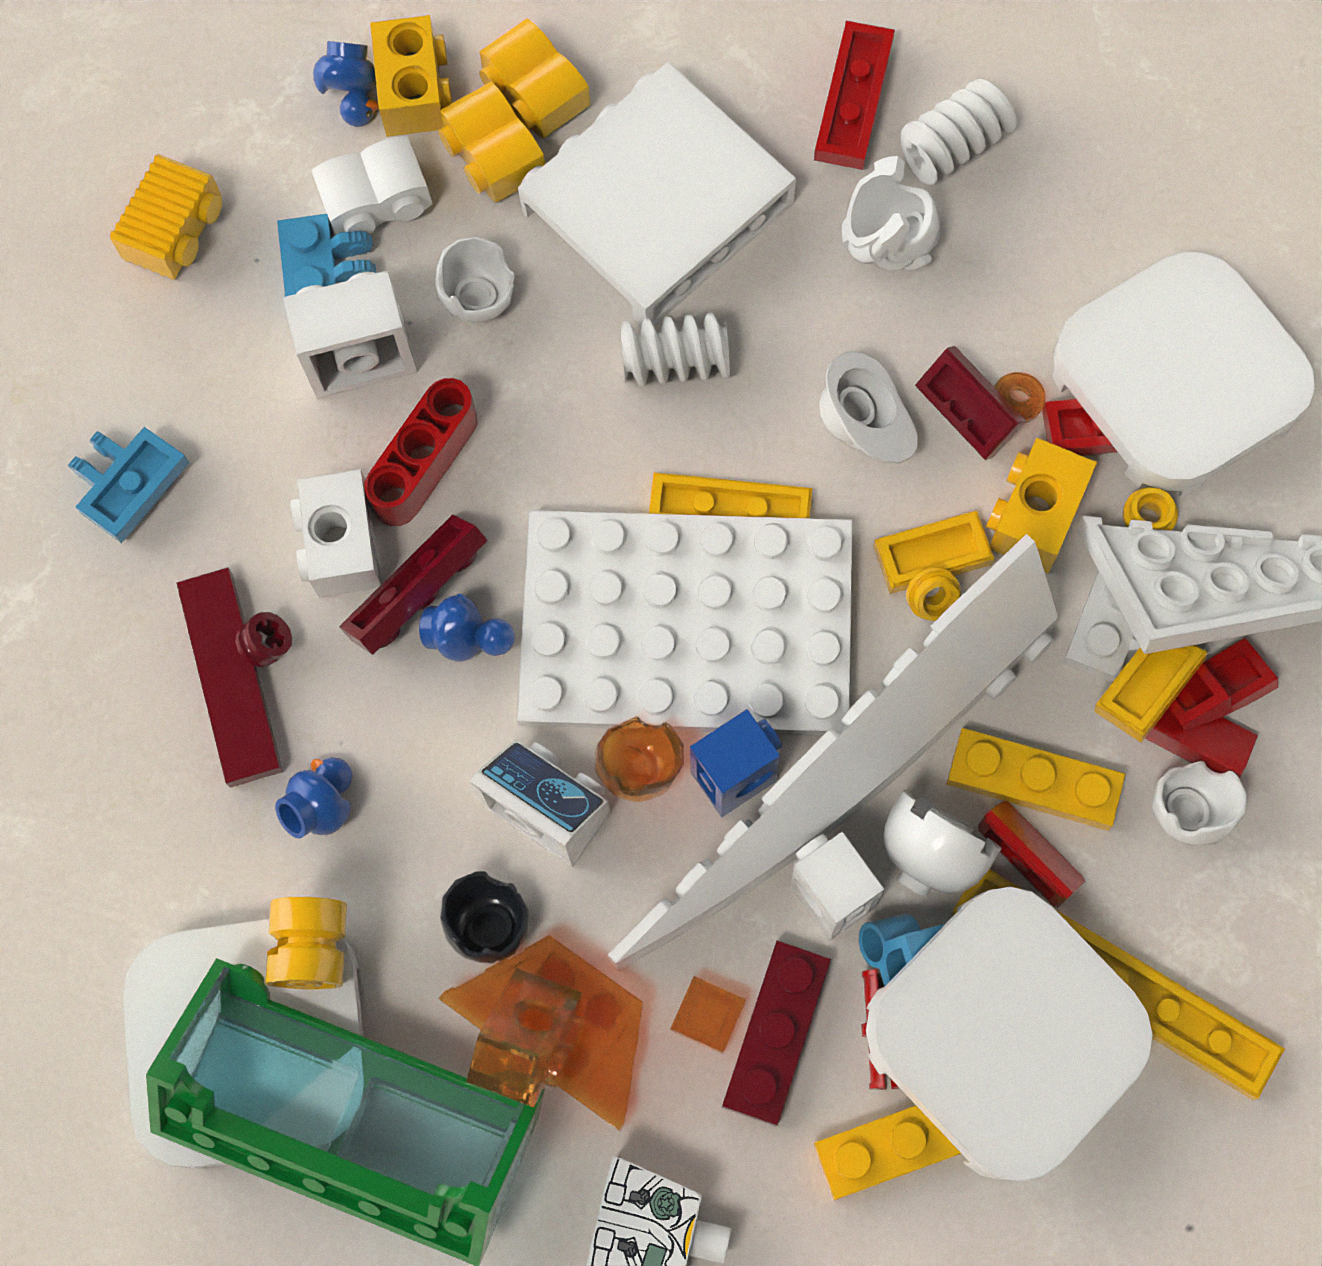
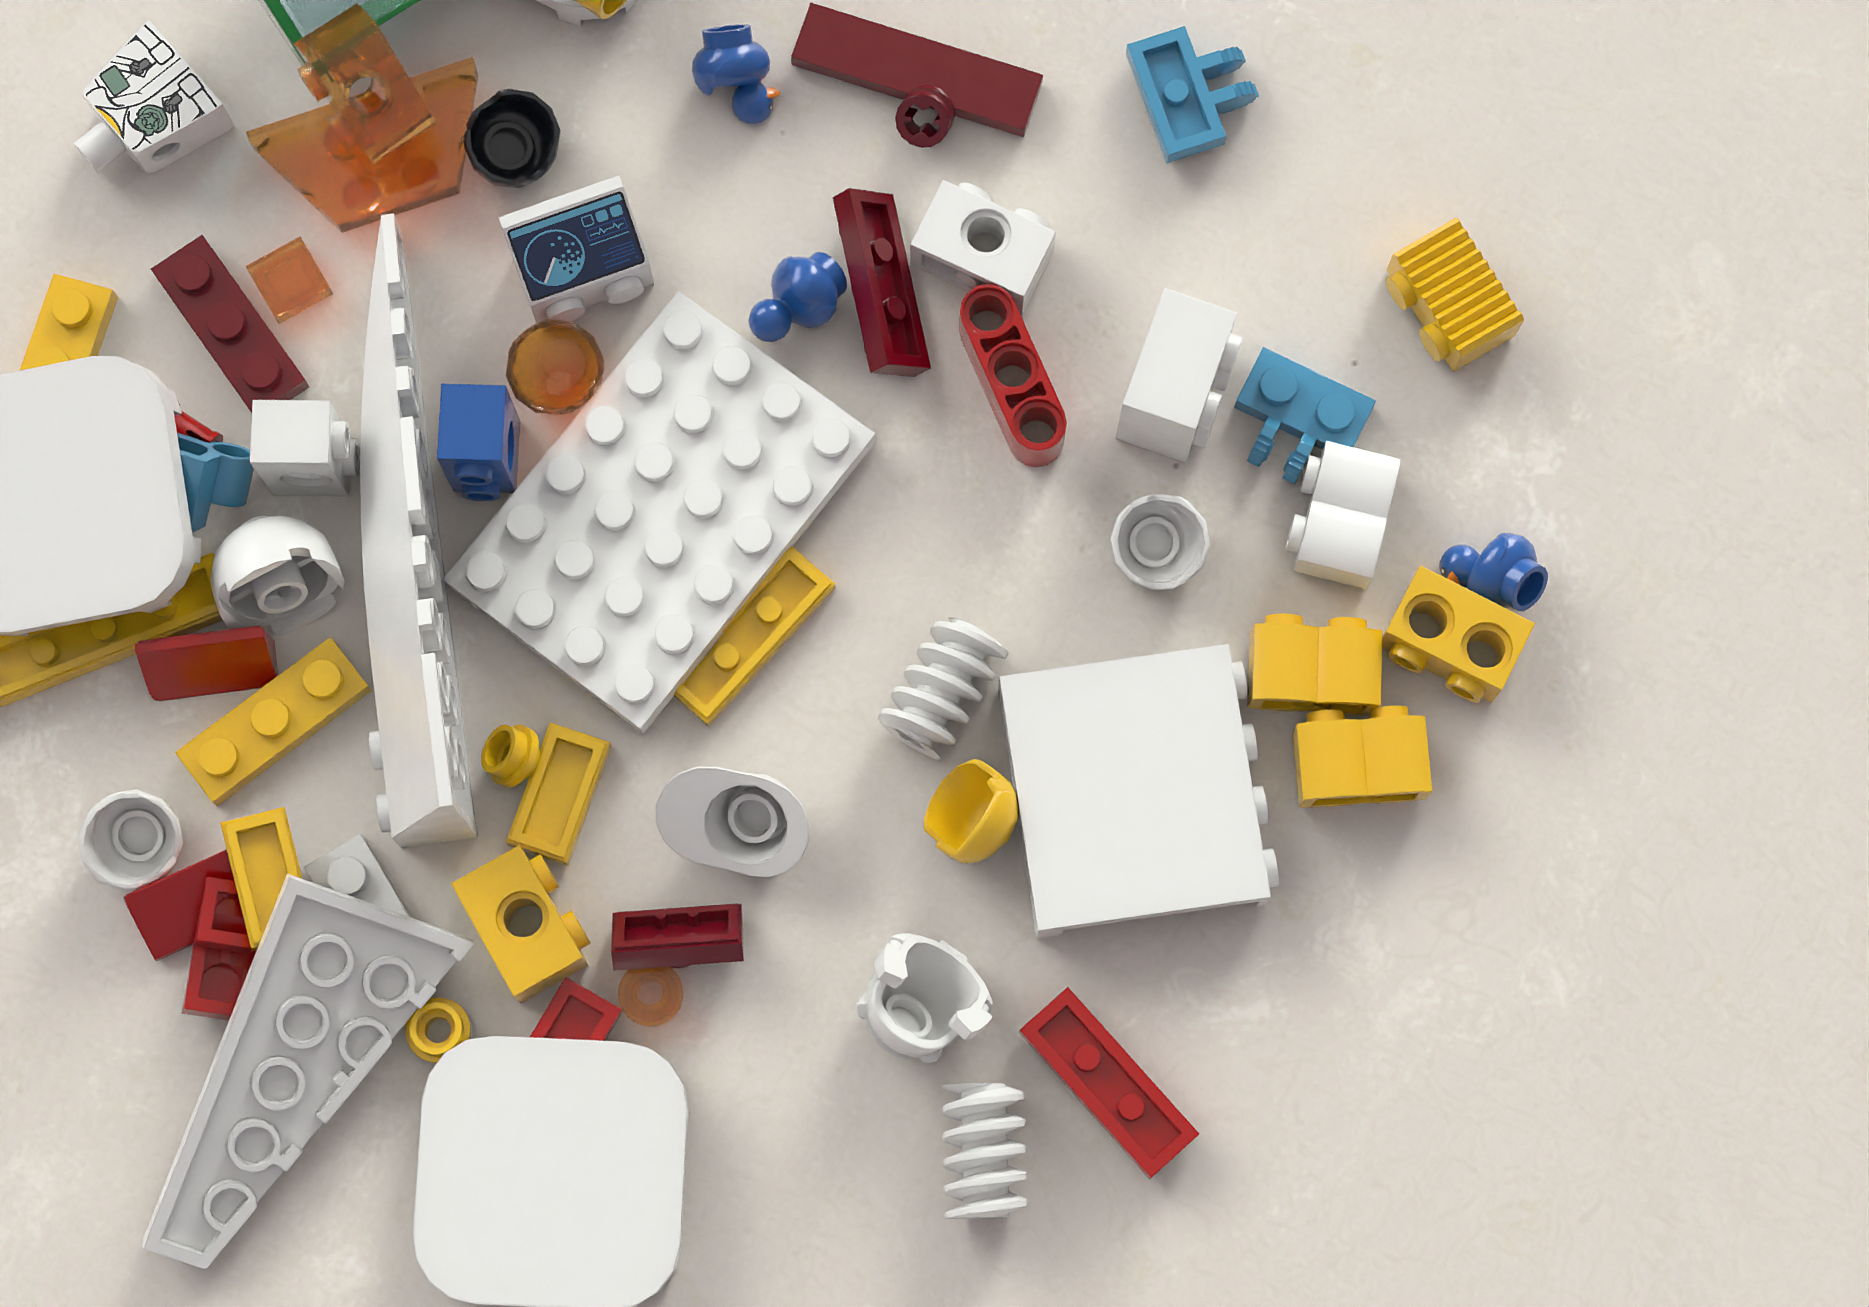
camera: 120 degrees right, 5 degrees up
(747, 275) = (972, 812): none -> yellow hair

